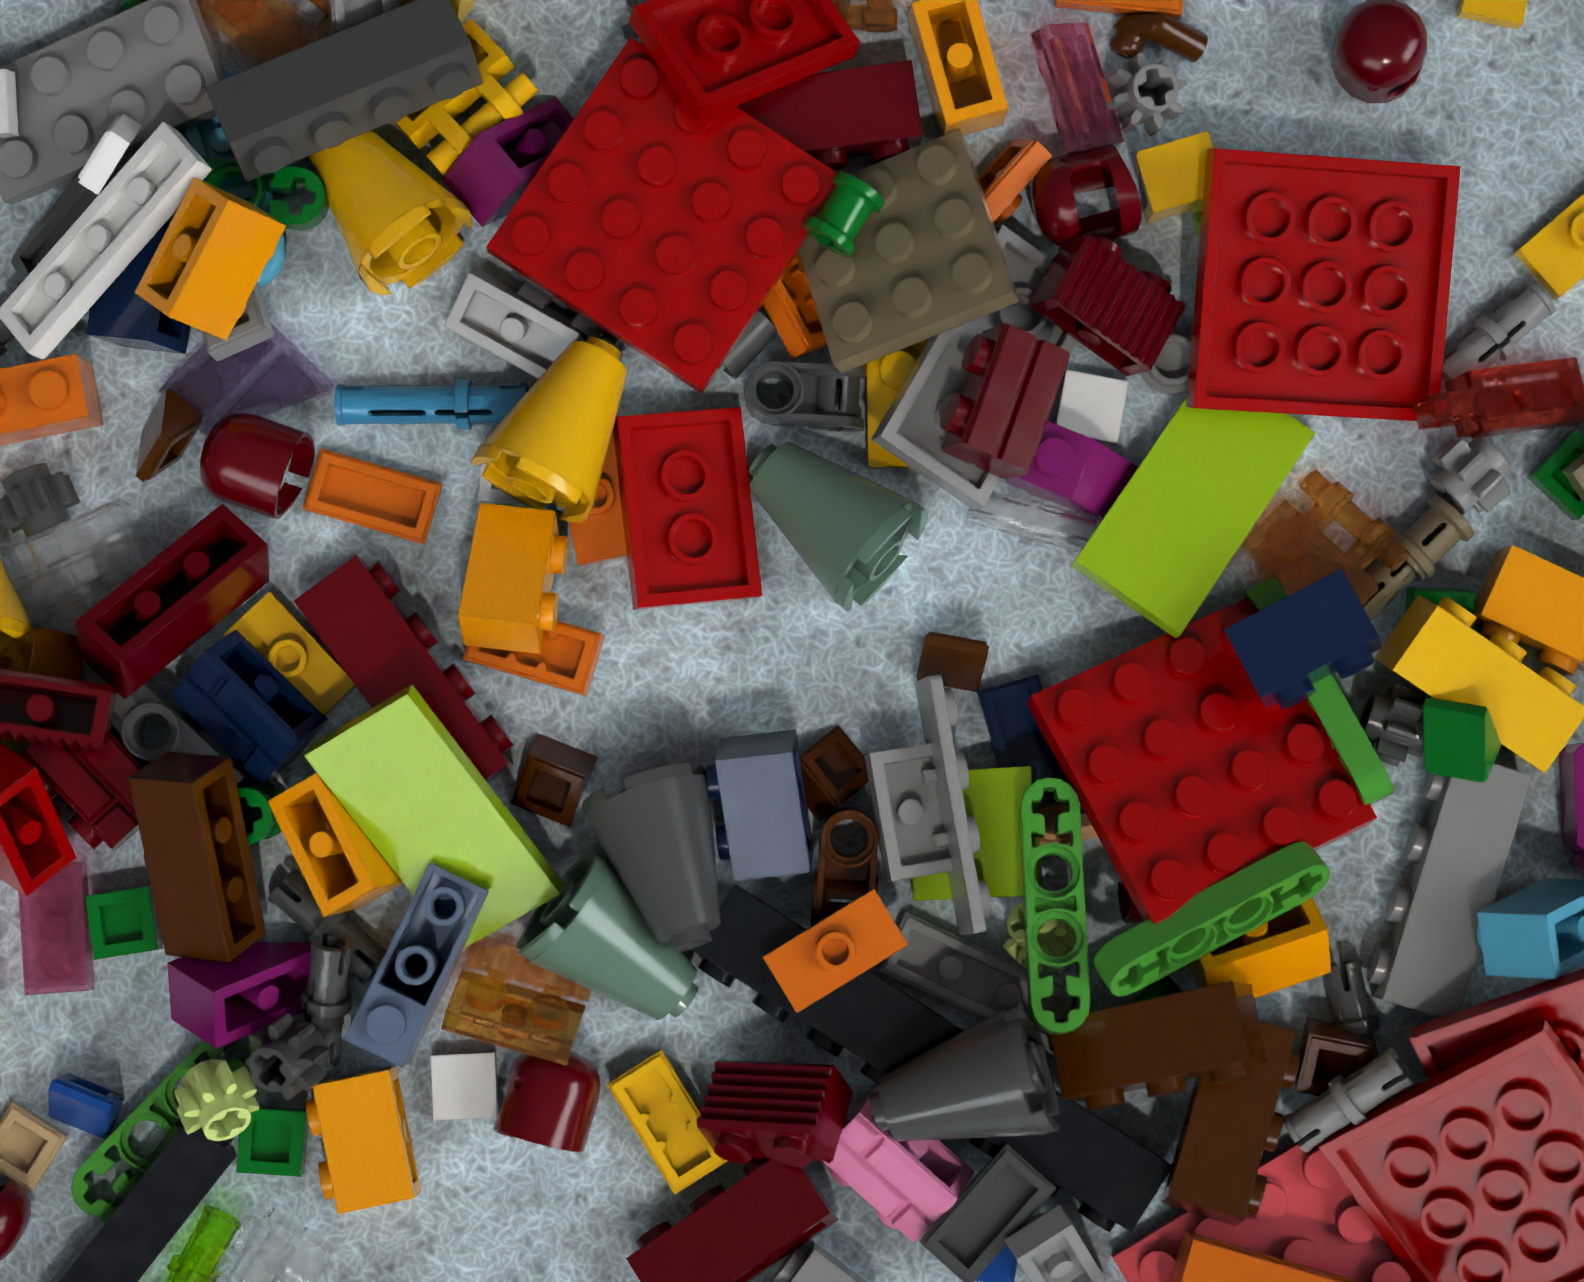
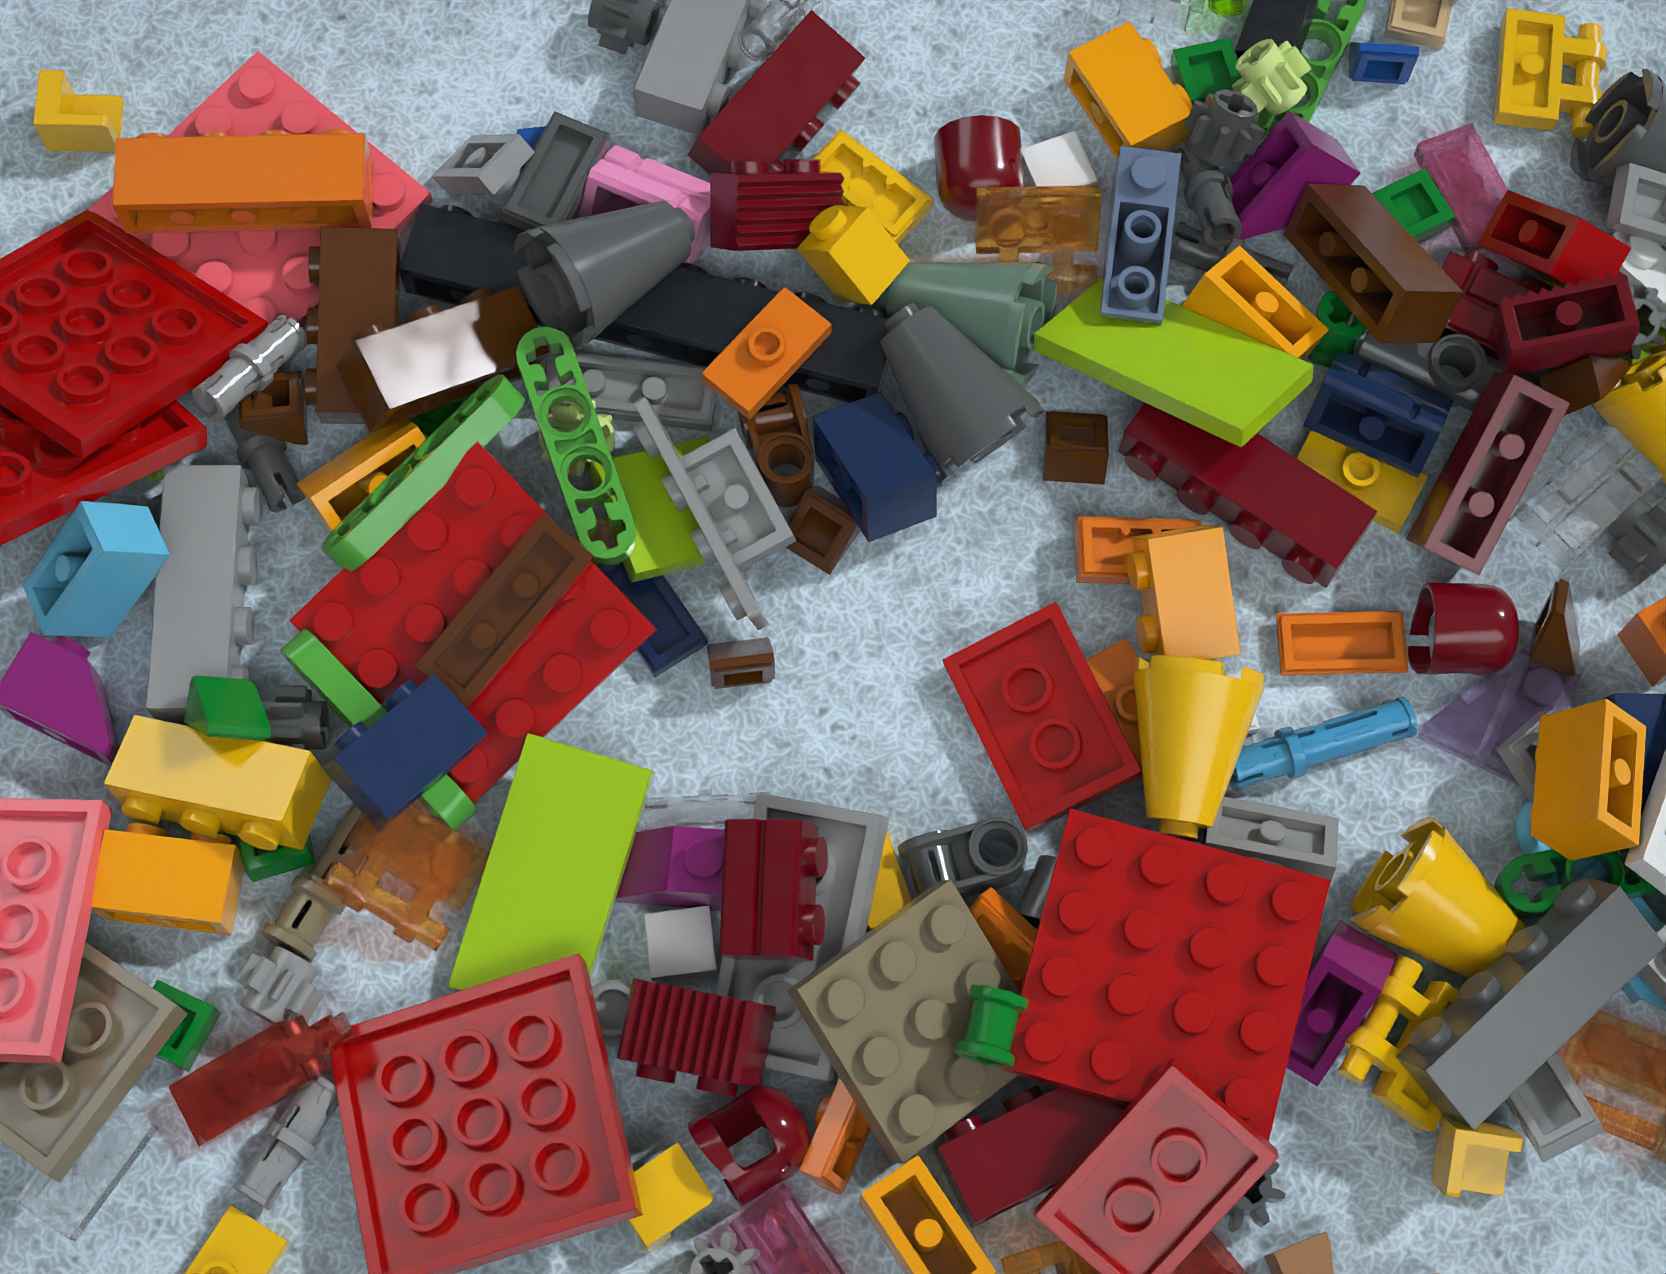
camera: 165 degrees right, 15 degrees down
(713, 1034) = (852, 253): none -> yellow brick
(836, 520) = (899, 747): sand green cone -> none
(1173, 744) = (506, 610): none -> reddish brown plate

